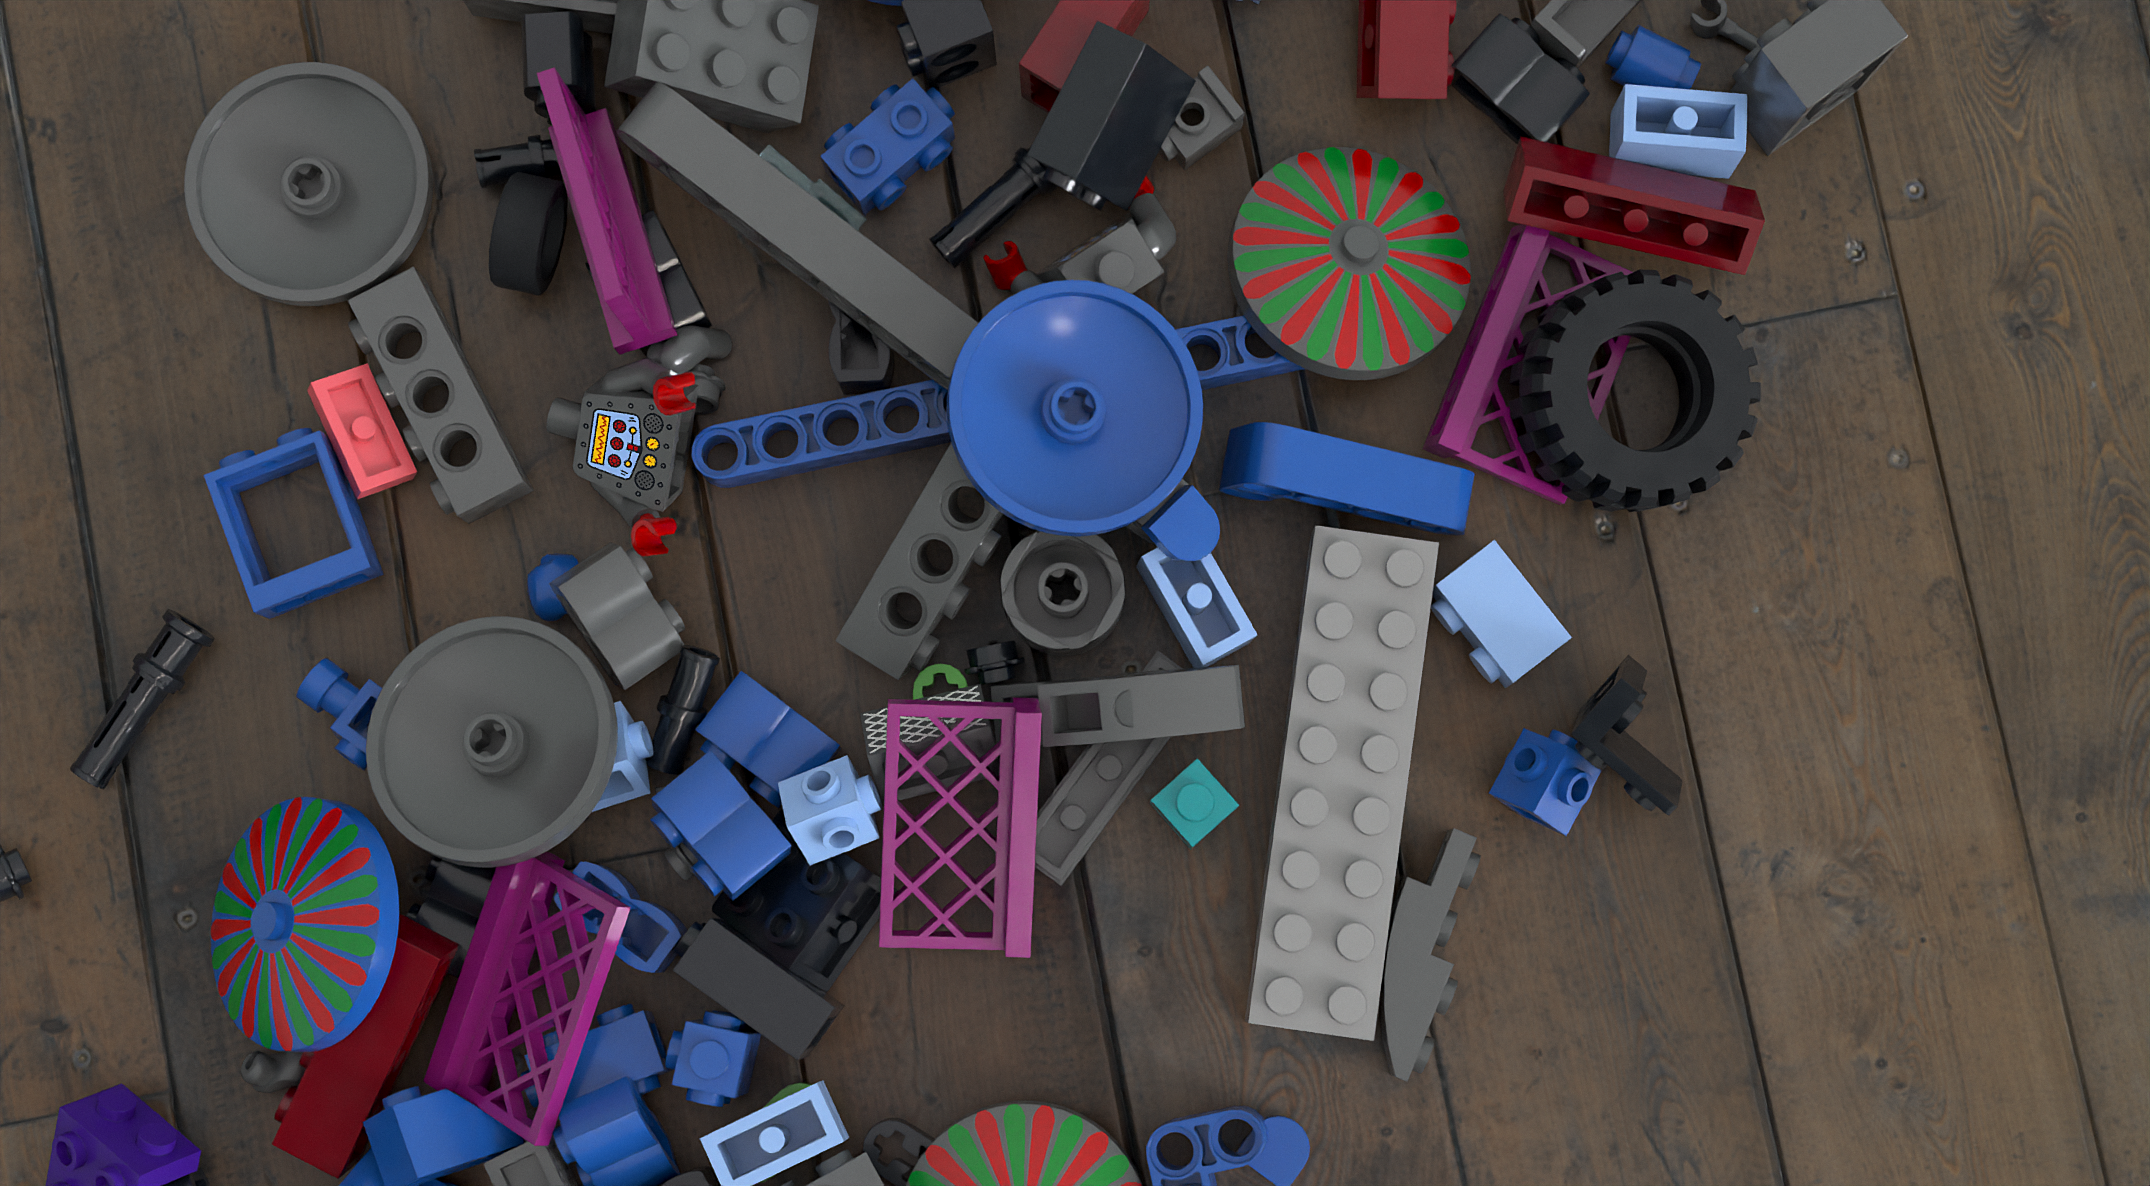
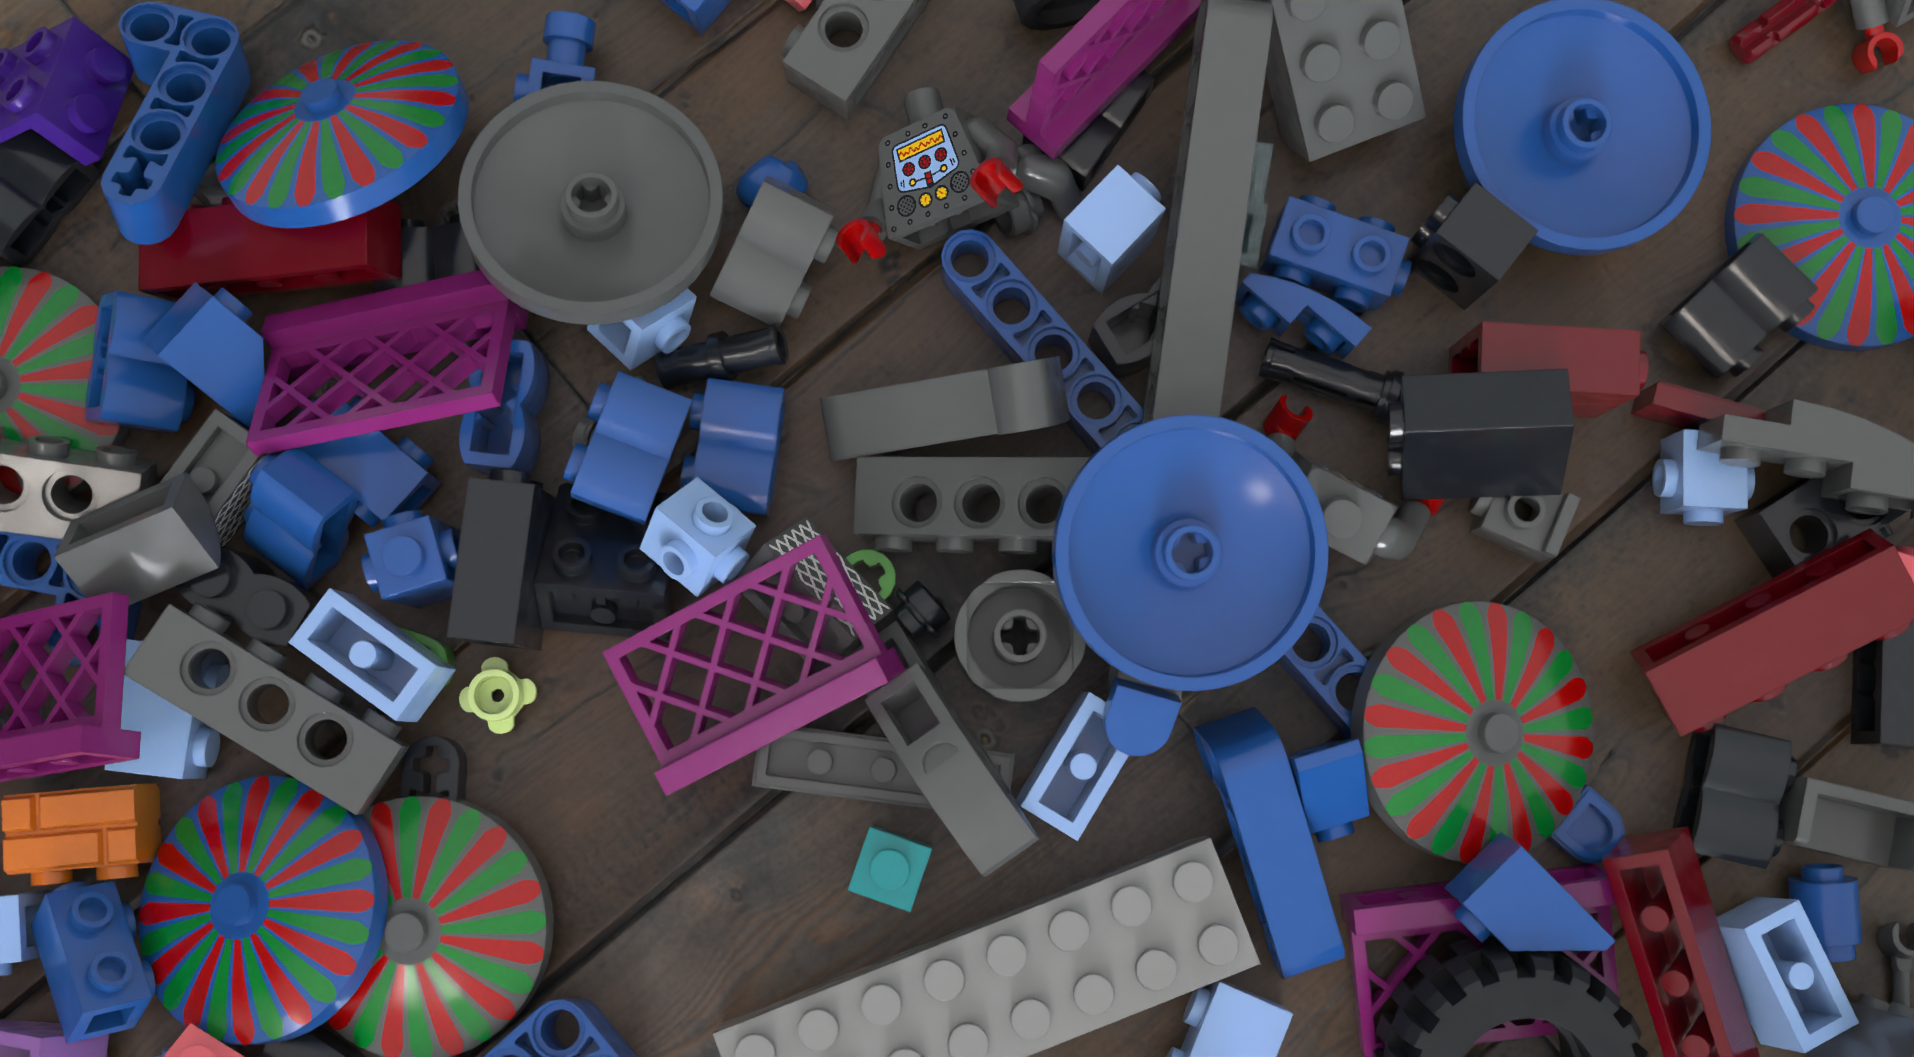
camera: 55 degrees right, 0 degrees up
(170, 1035) = (194, 94): none -> blue beam
(762, 319) = (1111, 227): none -> light blue brick
(837, 544) = (946, 409): none -> dark grey beam
(846, 1053) = (479, 695): none -> yellowish green plate
(905, 215) = (1278, 302): none -> blue slope
(1330, 404) = (1331, 786): none -> blue slope
(1480, 214) = (1589, 829): none -> blue tile
(1505, 305) = (1521, 903): none -> blue slope

